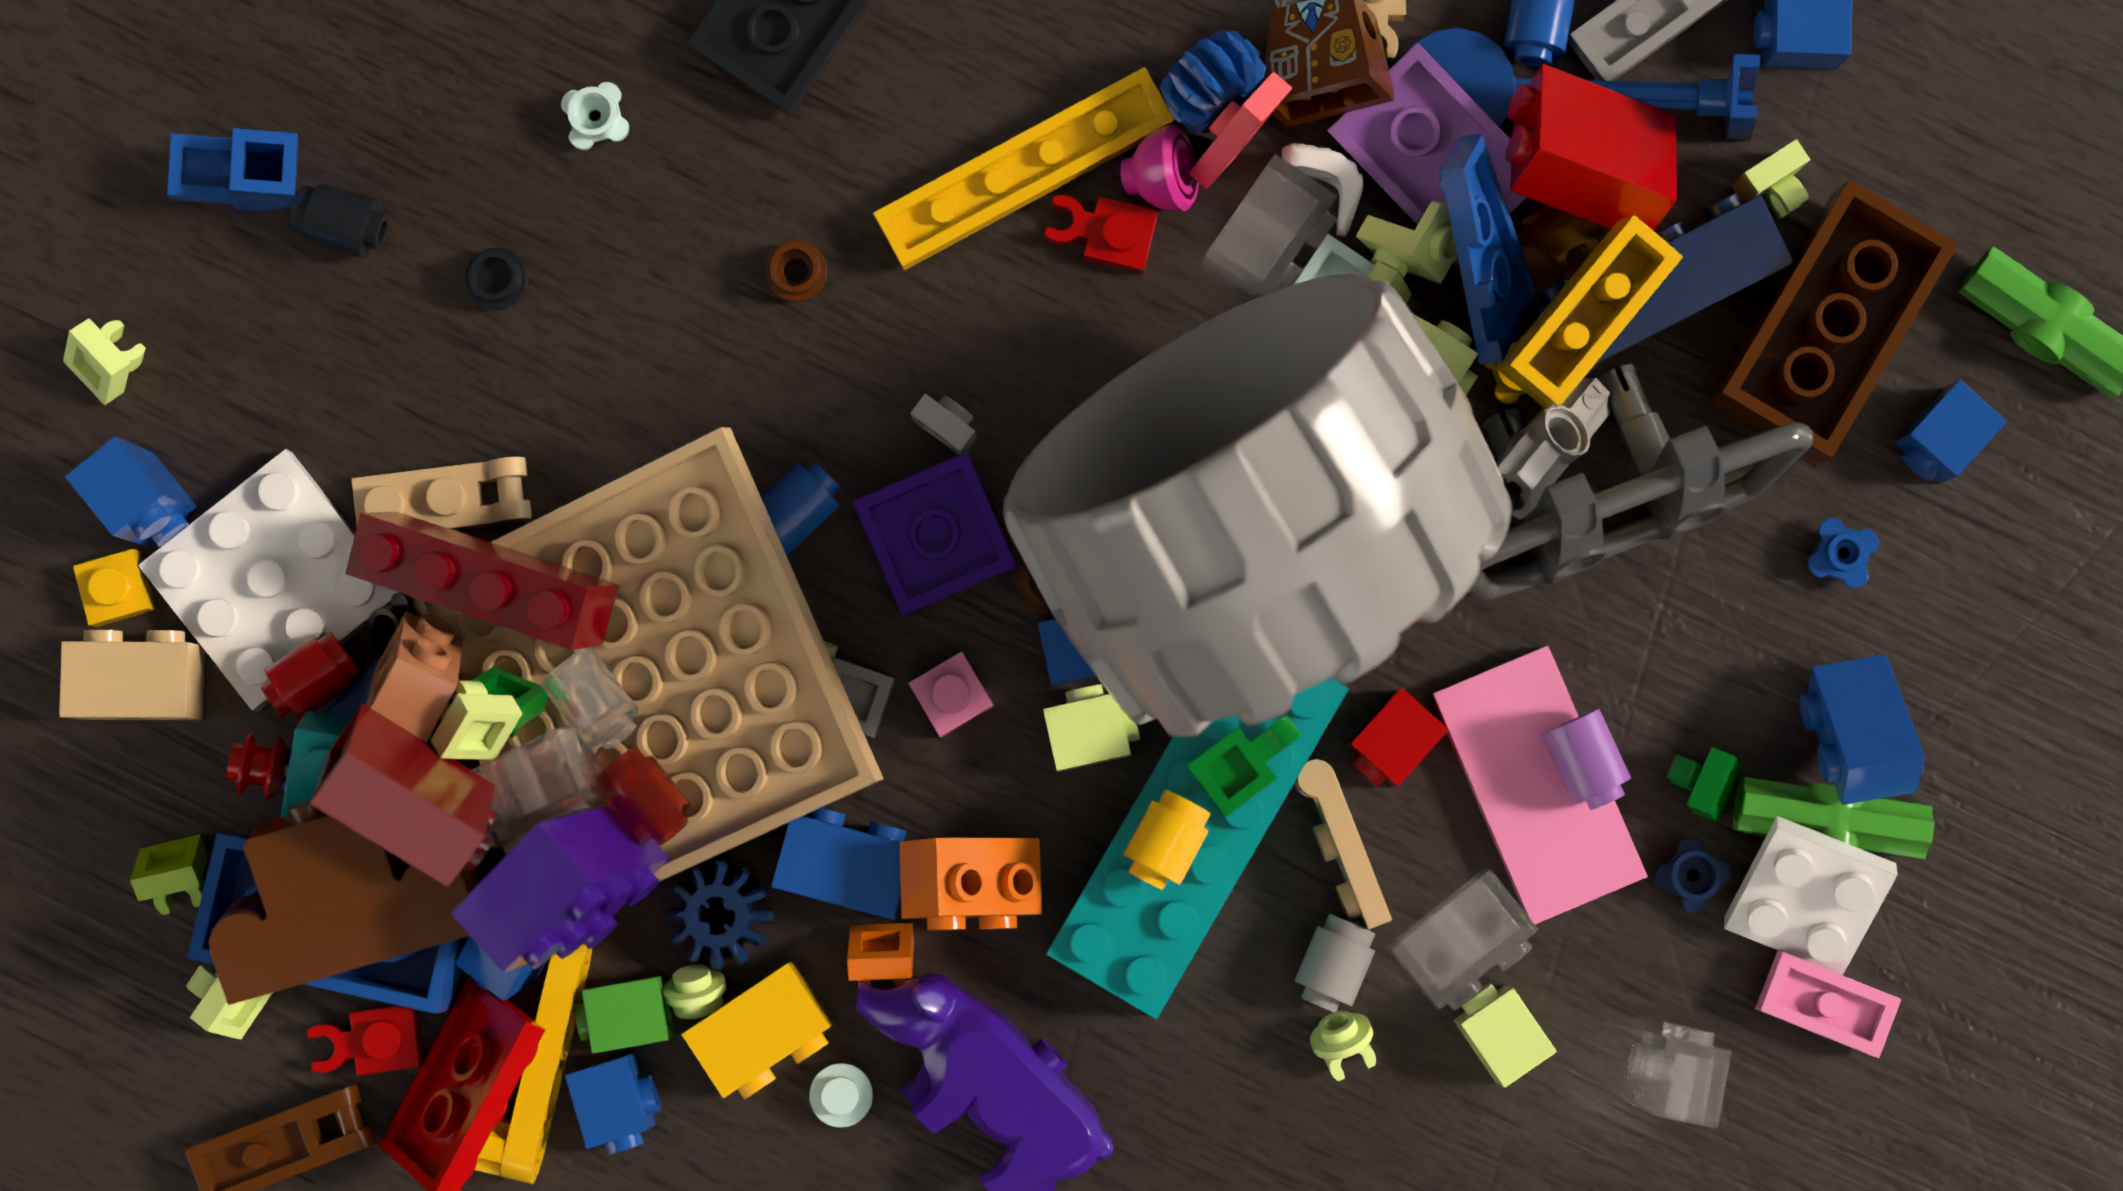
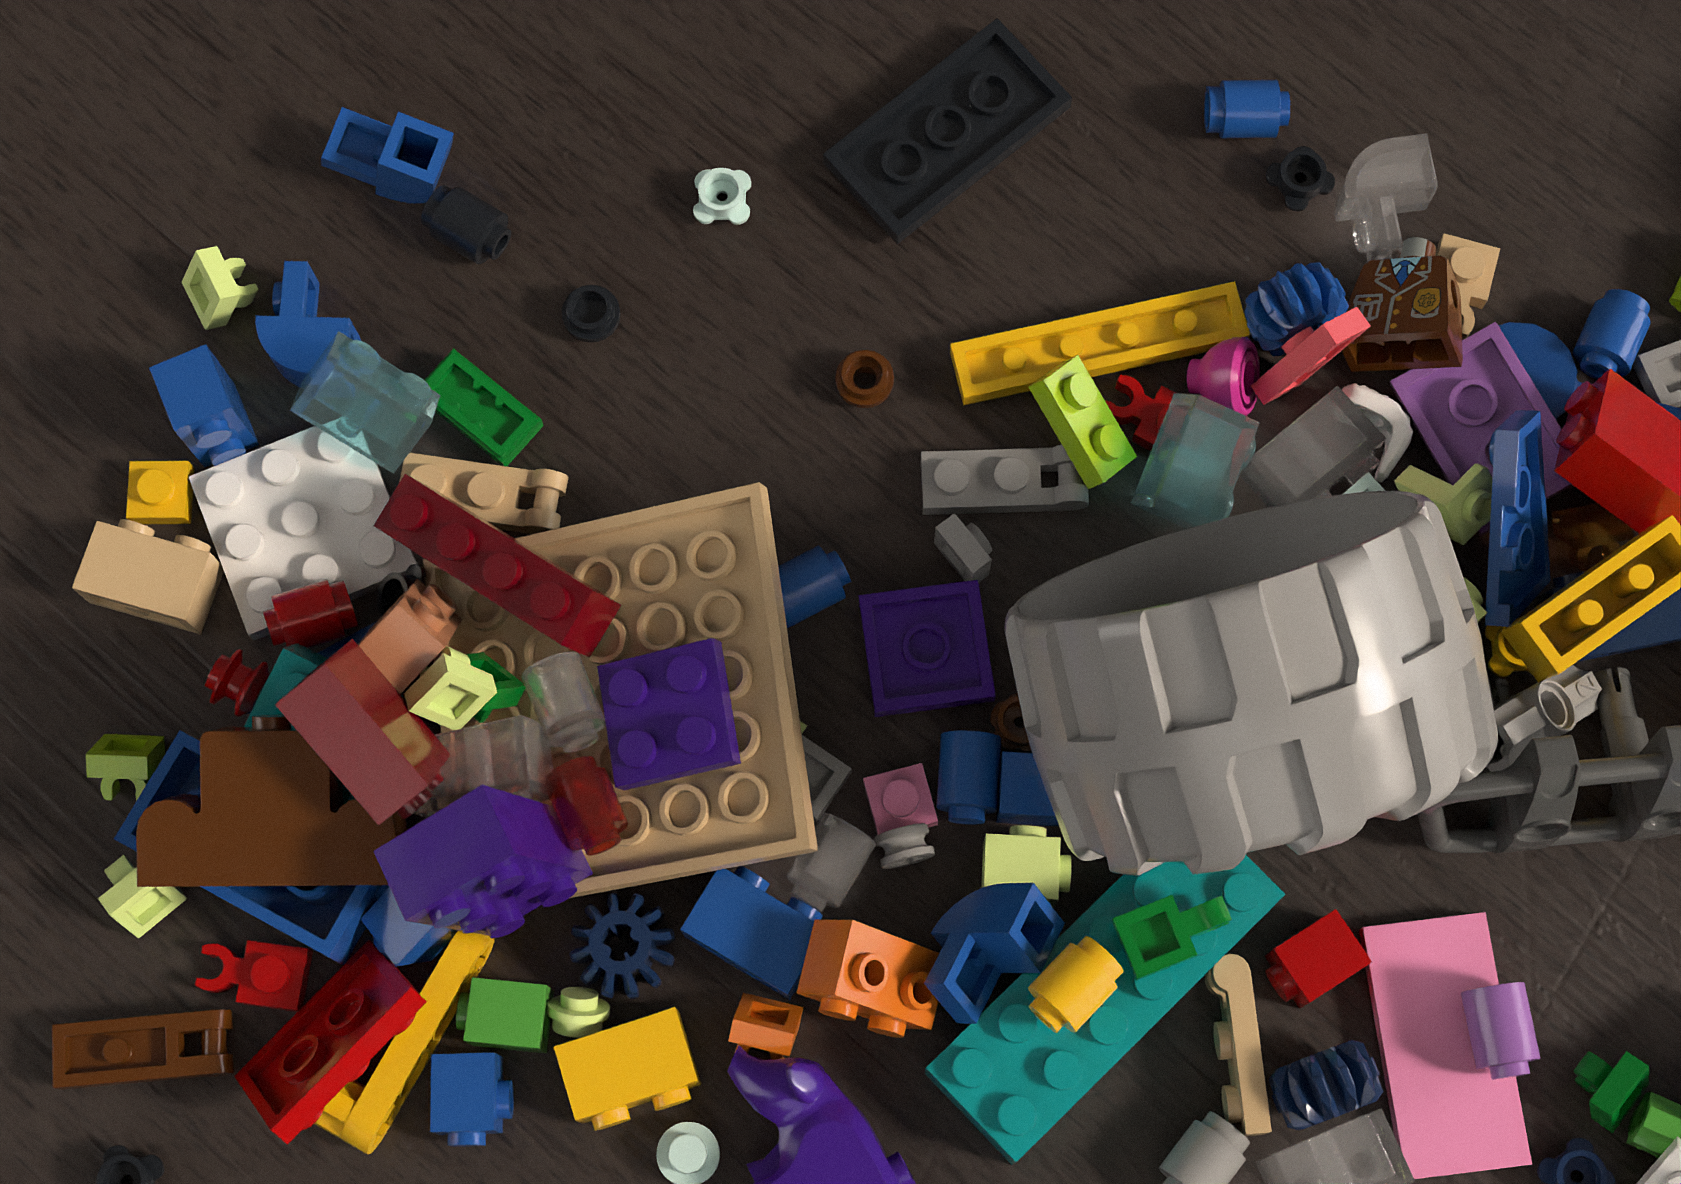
camera: 15 degrees right, 10 degrees down
(214, 399) = (295, 333): none -> blue brick
(296, 443) = (366, 402): none -> clear light blue brick
(412, 411) = (482, 409): none -> green plate
(698, 684) = (668, 714): none -> dark purple plate
(906, 774) = (830, 872): none -> clear brick
(964, 339) = (999, 481): none -> light grey plate
(967, 739) = (904, 846): none -> light grey bush
(1011, 652) = (968, 775): none -> blue brick
(1028, 260) = (1082, 422): none -> lime plate
(1068, 810) = (988, 935): none -> blue brick
(1153, 273) = (1196, 461): none -> clear light blue brick
(1433, 860) = (1325, 1085): none -> dark blue gear

